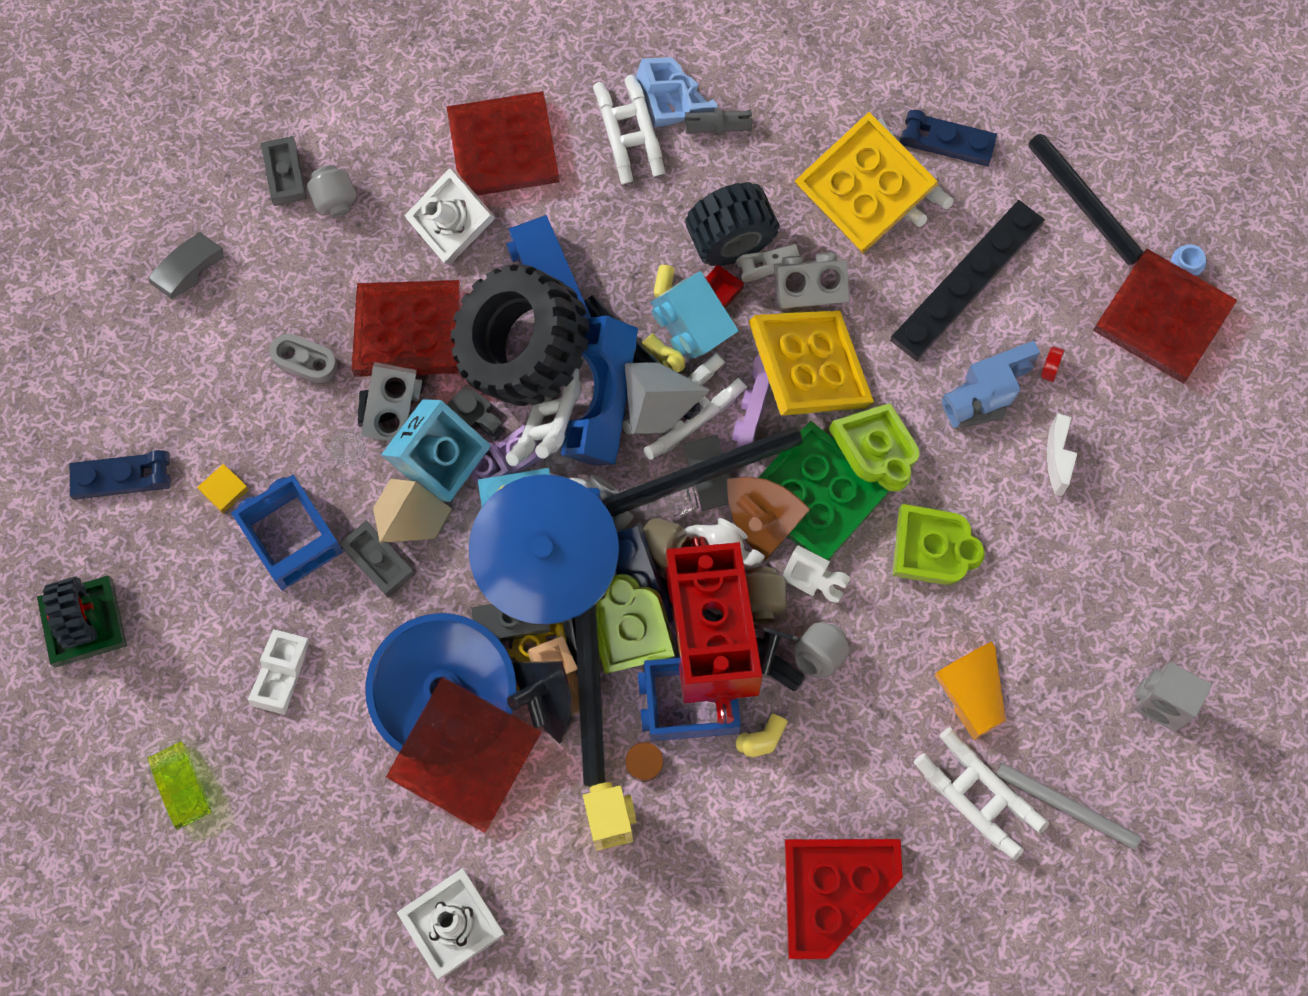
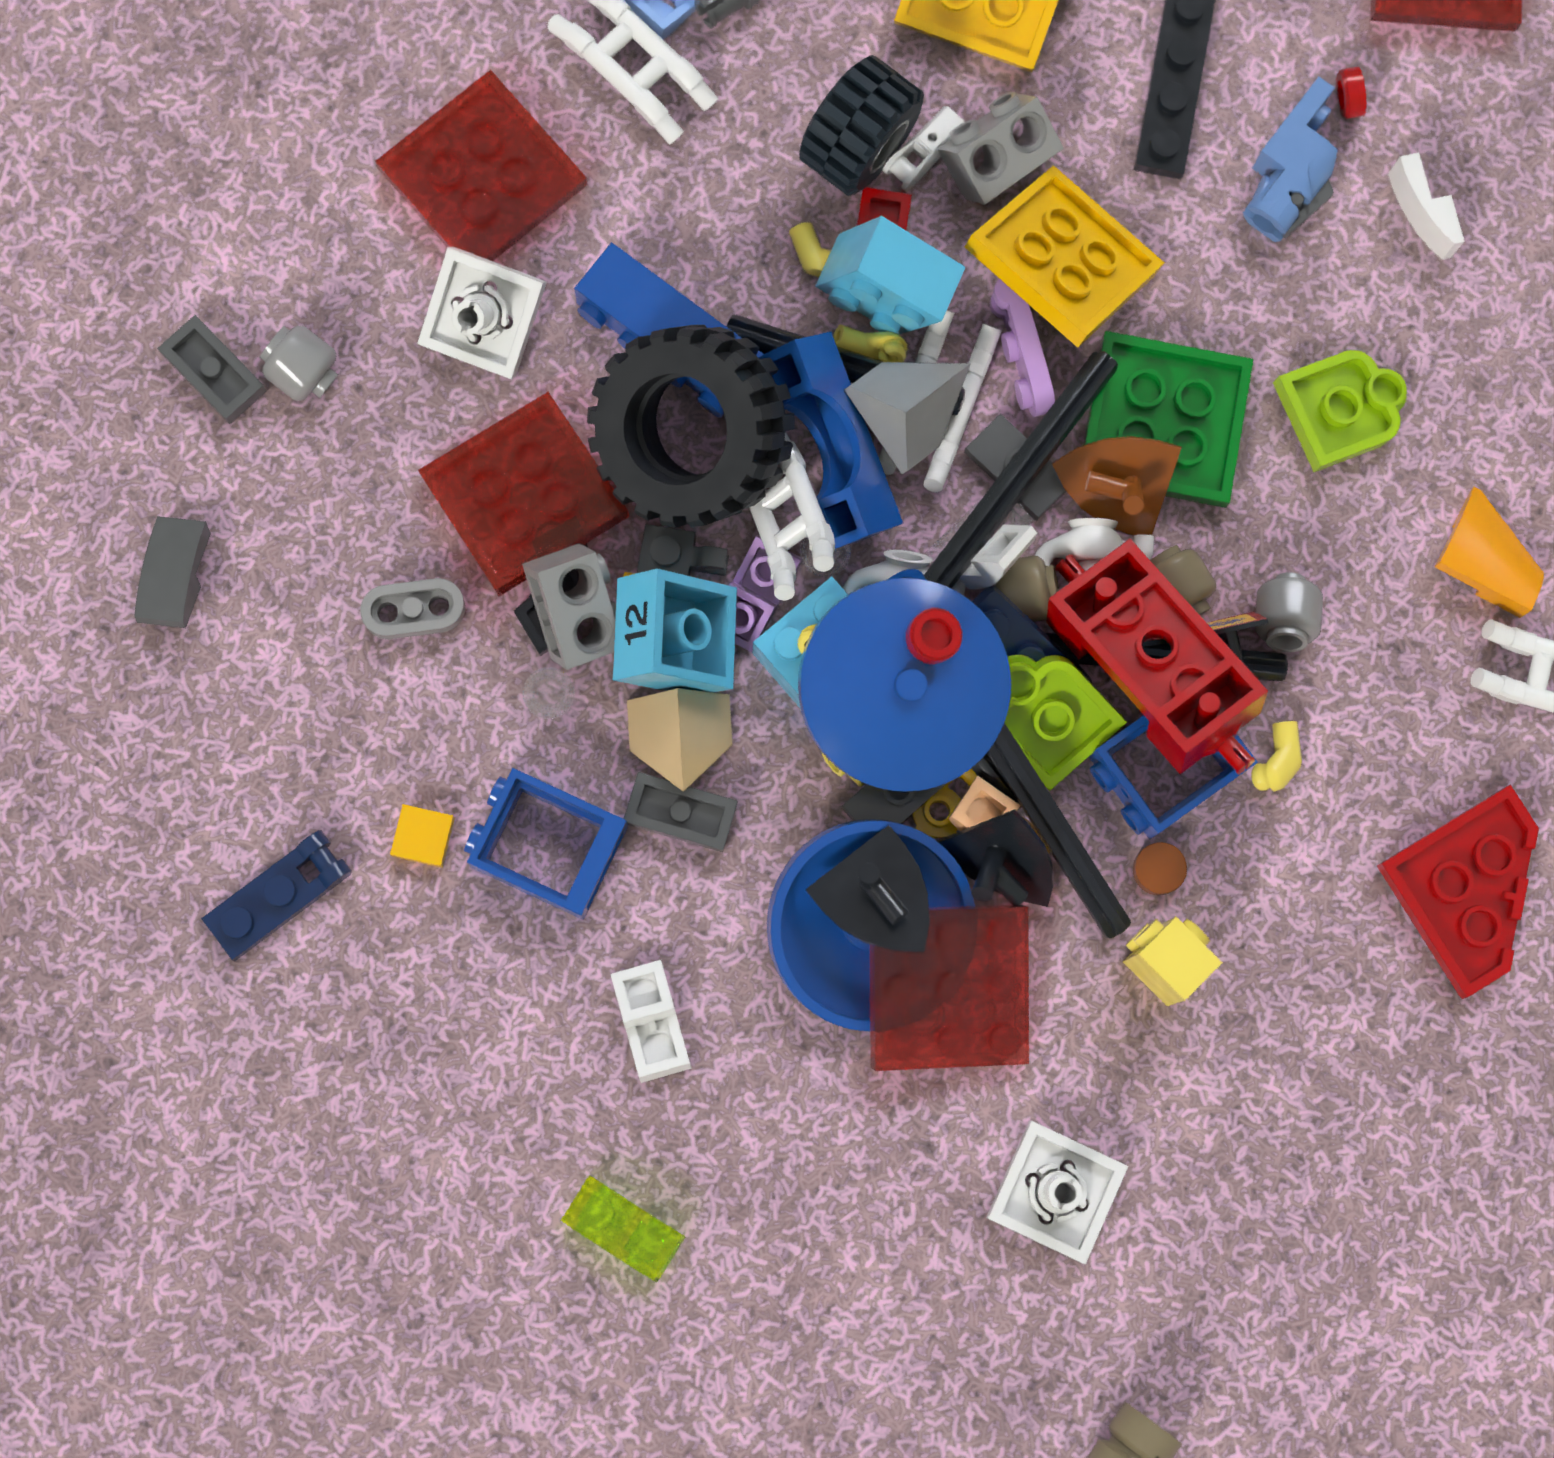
camera: 40 degrees left, 10 degrees up
(80, 619) = (360, 1106): plate -> none
(450, 667) = (877, 895): none -> black shield
(573, 525) = (934, 636): none -> red tile
(652, 507) = (998, 556): none -> white slope
(810, 573) = (1219, 523): white plate -> none
(877, 446) = (1207, 319): lime plate -> none

